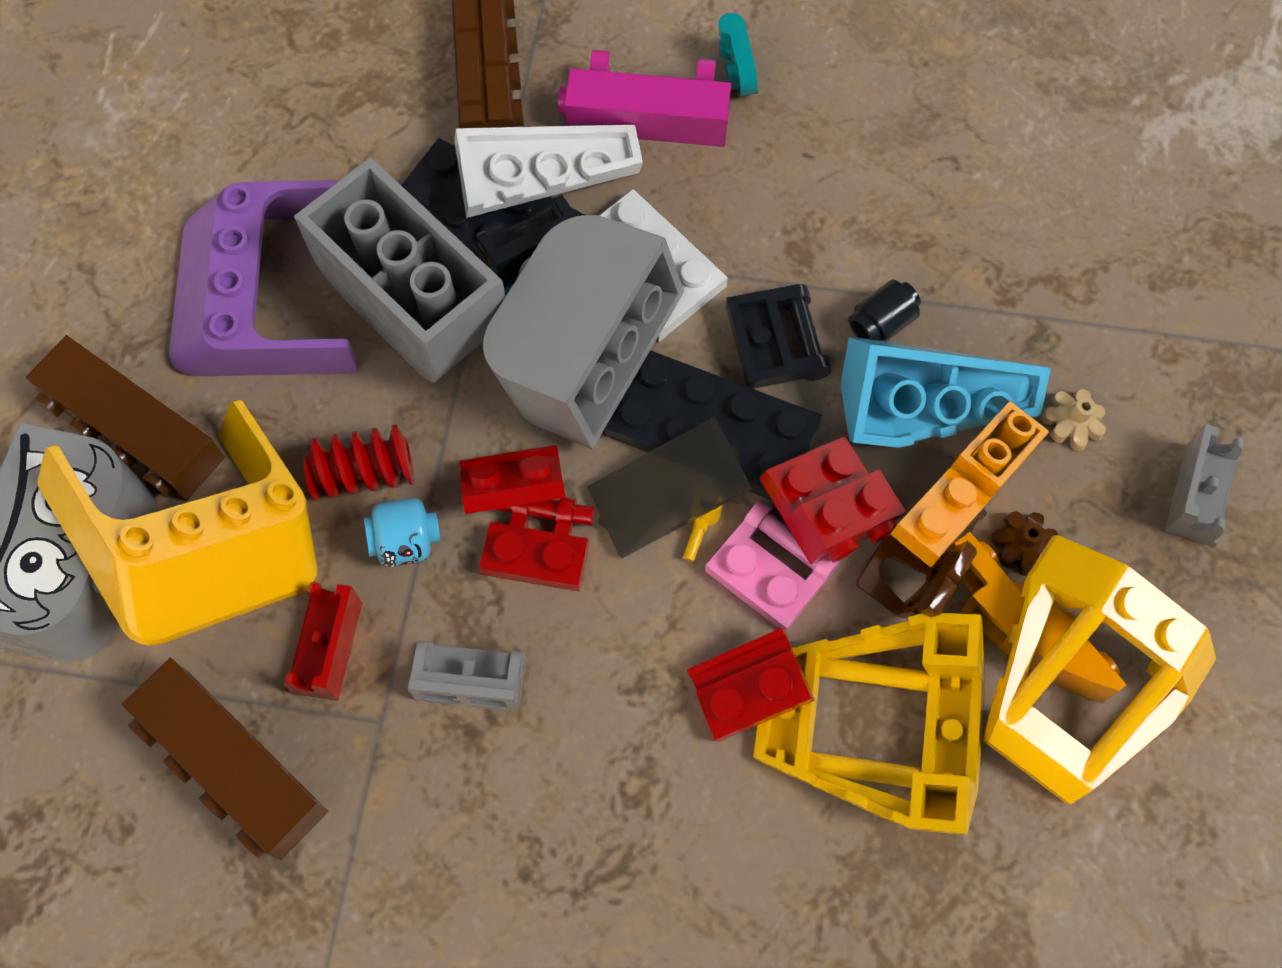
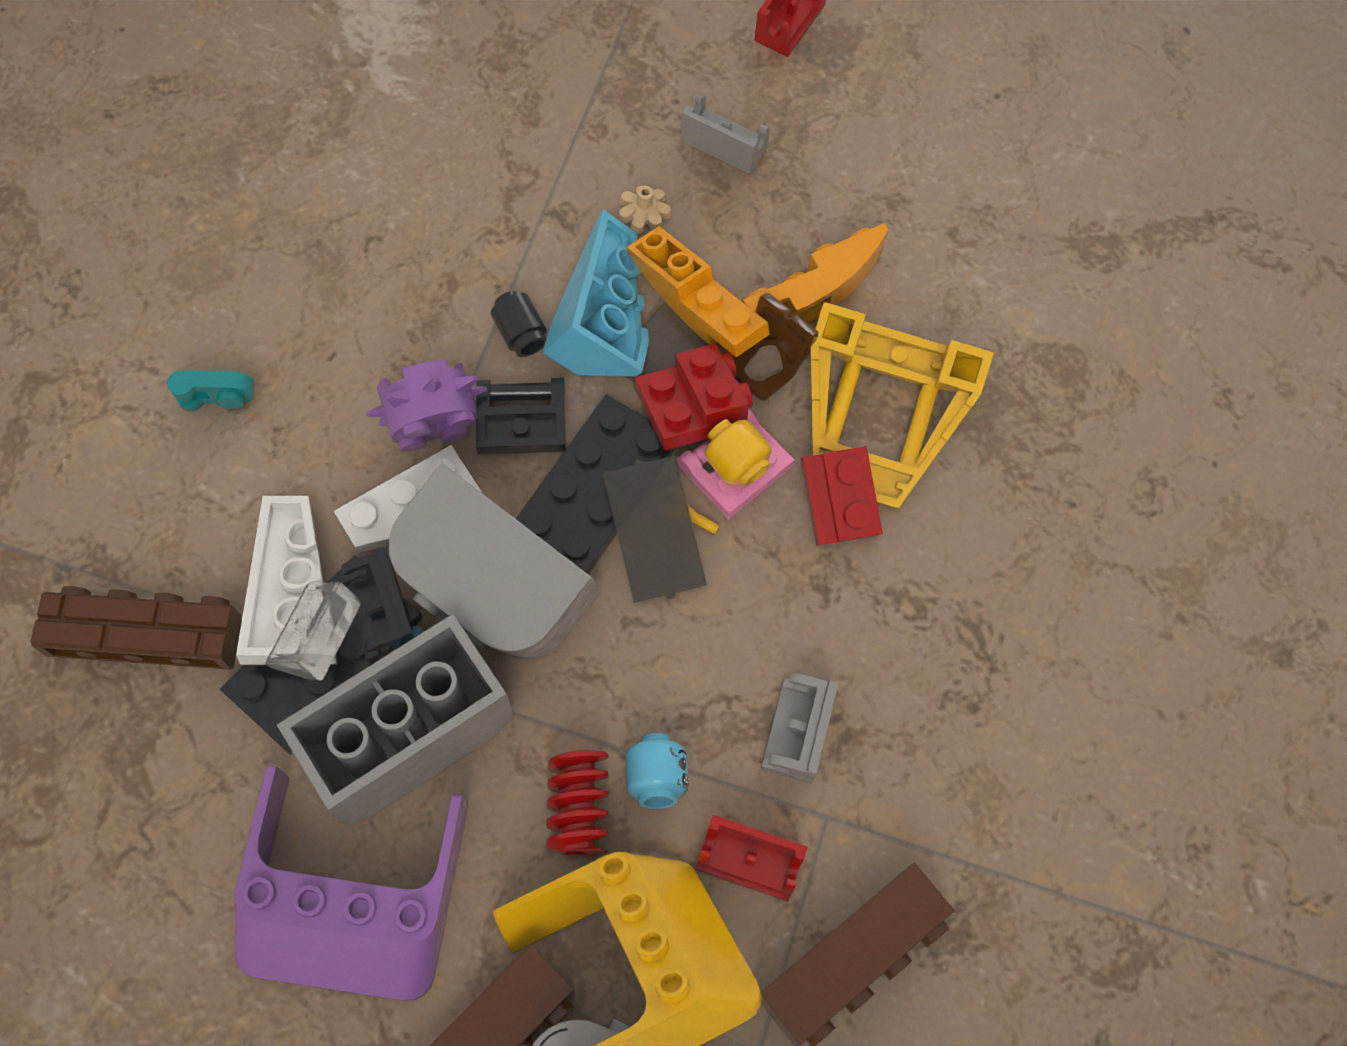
camera: 85 degrees left, 0 degrees up
(488, 186) = (314, 630): none -> clear slope
(511, 479) = (621, 663): red plate -> none
(538, 555) = (692, 659): red plate -> none
(657, 105) = (247, 472): dark pink brick -> none
(757, 235) = (428, 404): none -> medium lavender brick
(768, 552) = (738, 452): none -> yellow head
(1022, 540) = (745, 269): reddish brown plant -> none
(1134, 609) = (826, 205): yellow windscreen -> none

